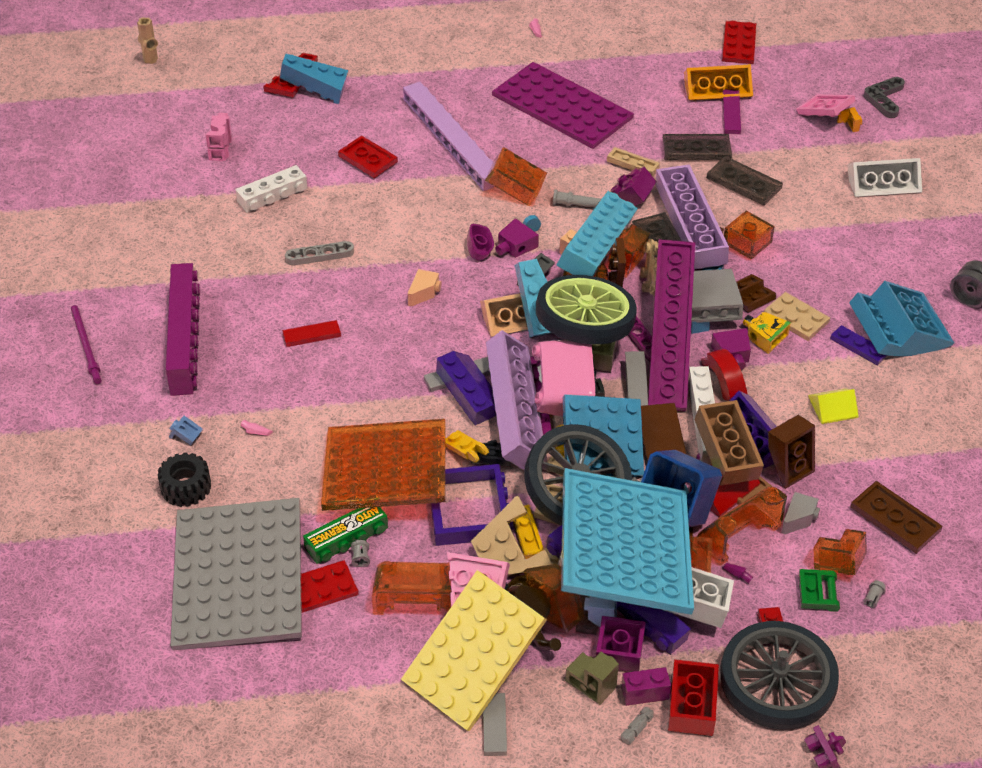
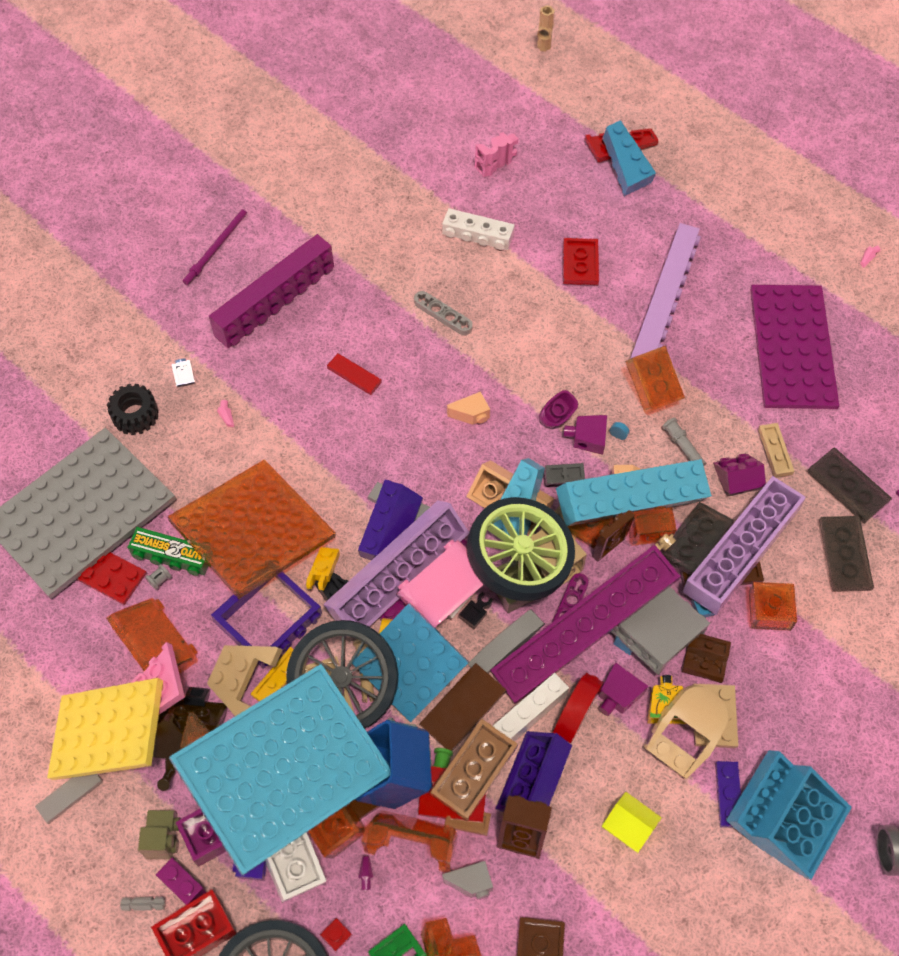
camera: 50 degrees right, 15 degrees up
(797, 310) = (703, 713): none -> tan slope

